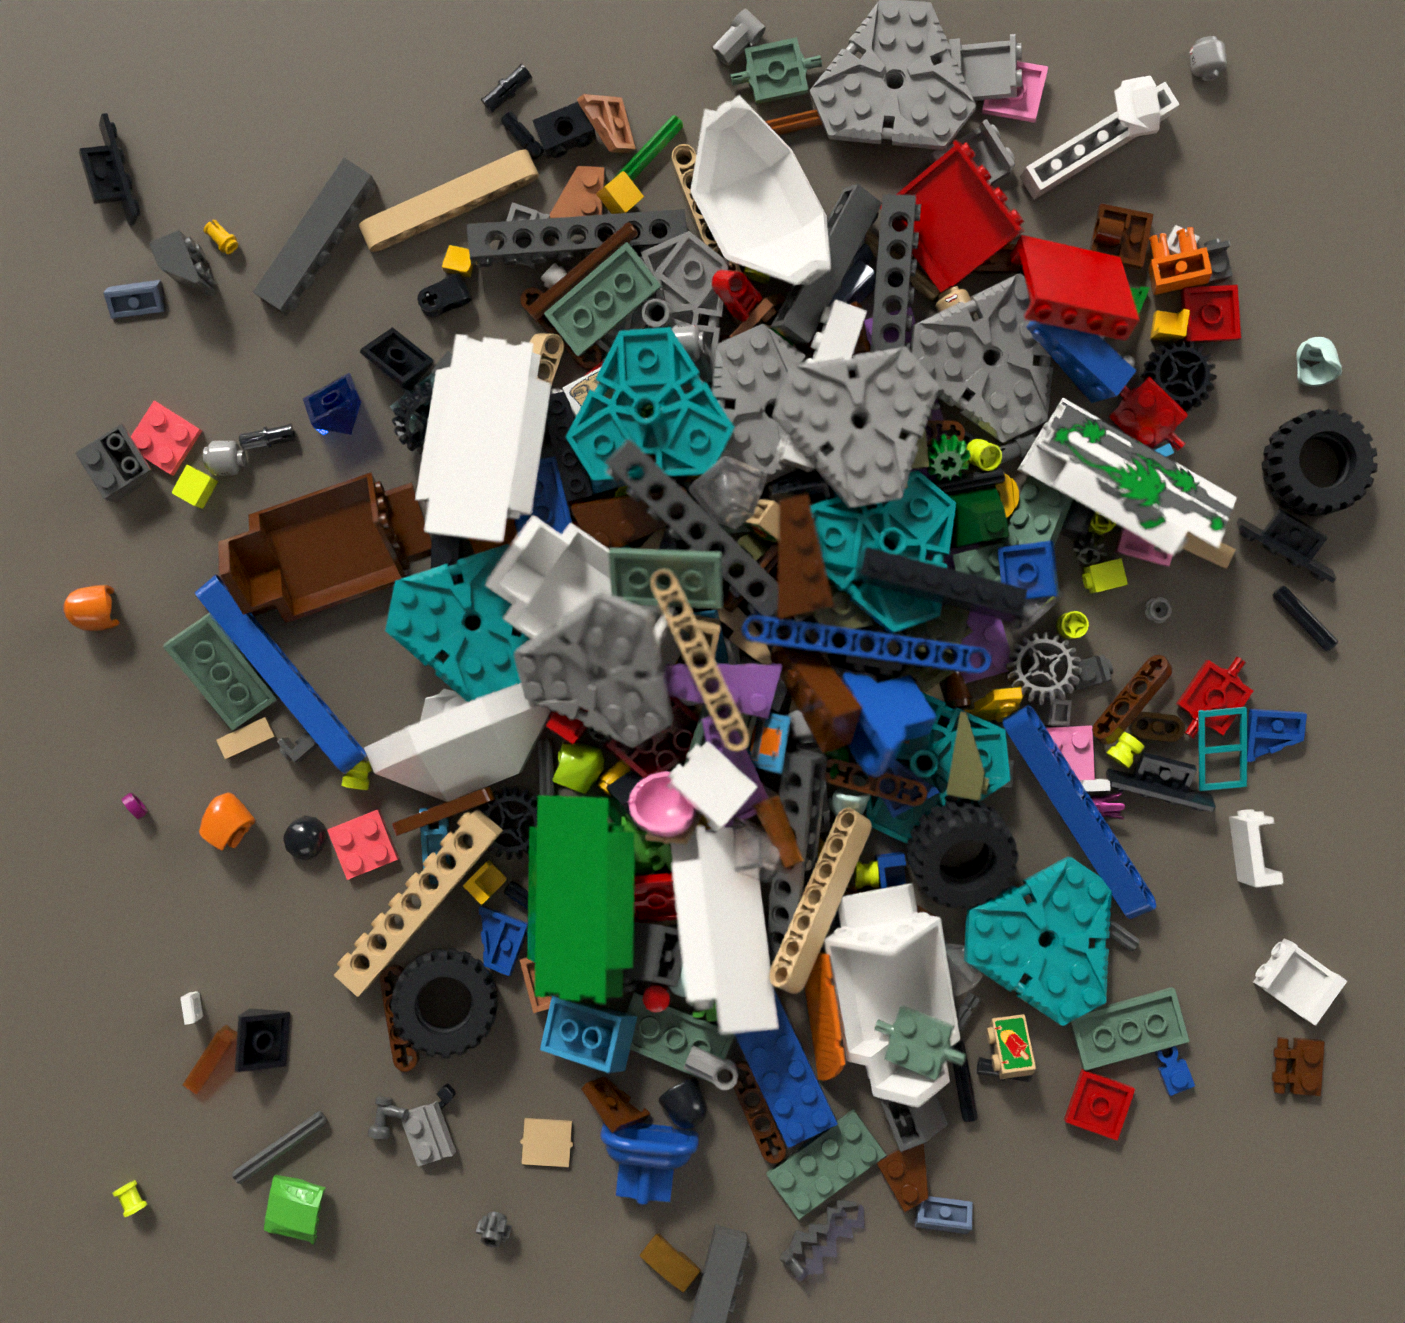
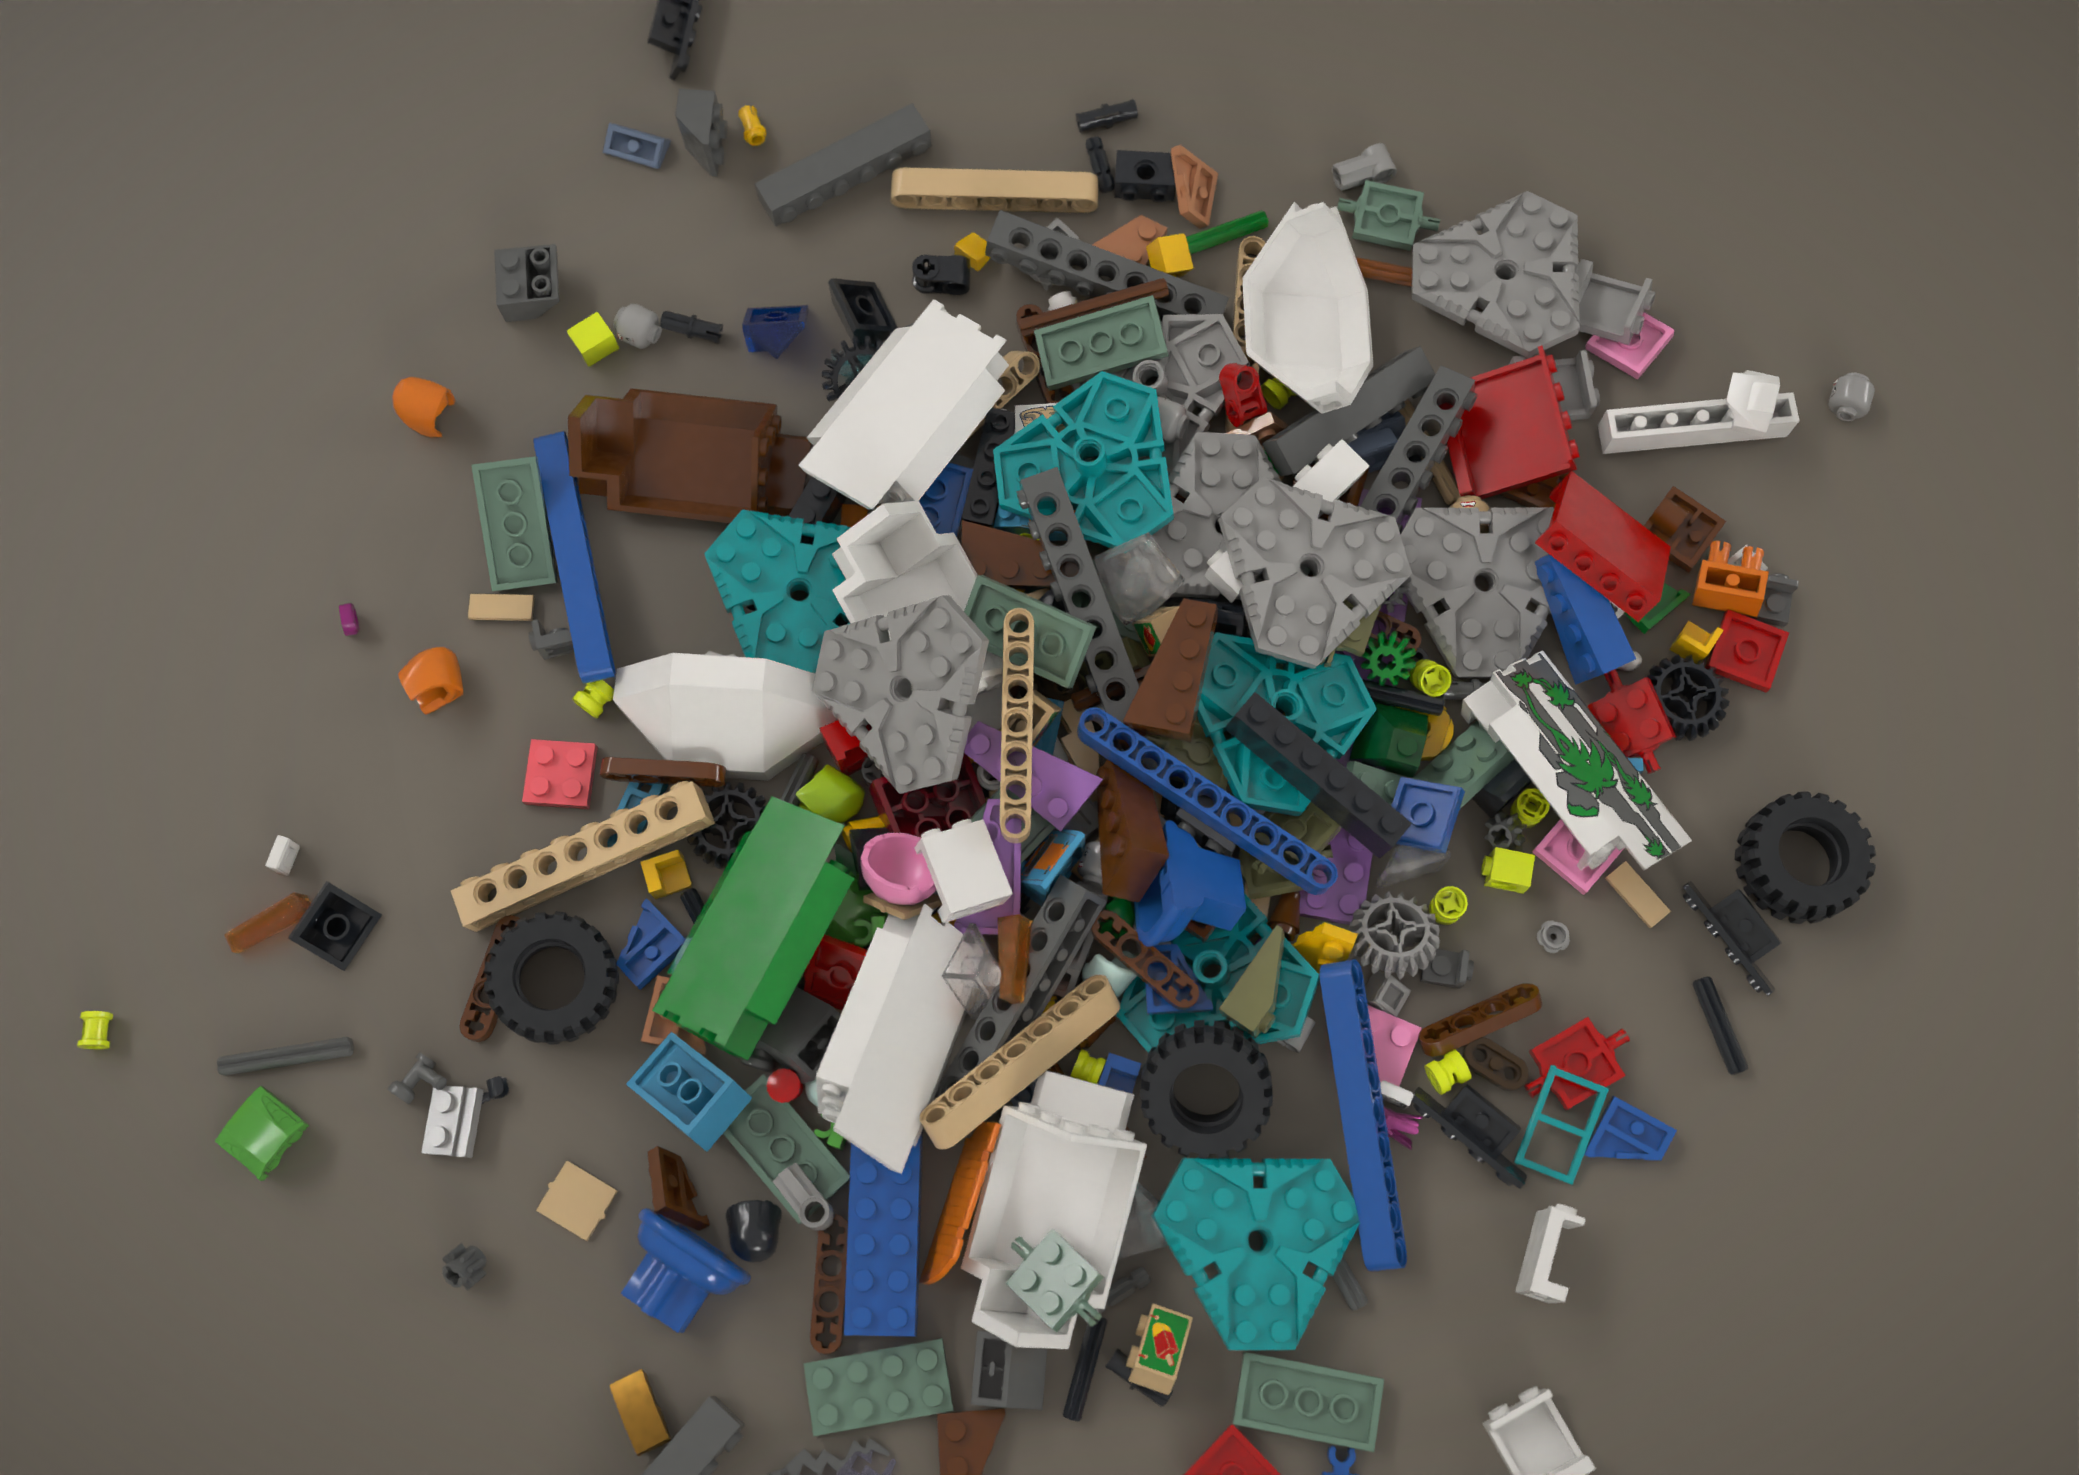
camera: 25 degrees right, 15 degrees down
(165, 437) = (590, 282): coral plate -> none
(305, 837) = (503, 737): black hair -> none
(1323, 373) = (1852, 741): light aqua hair -> none

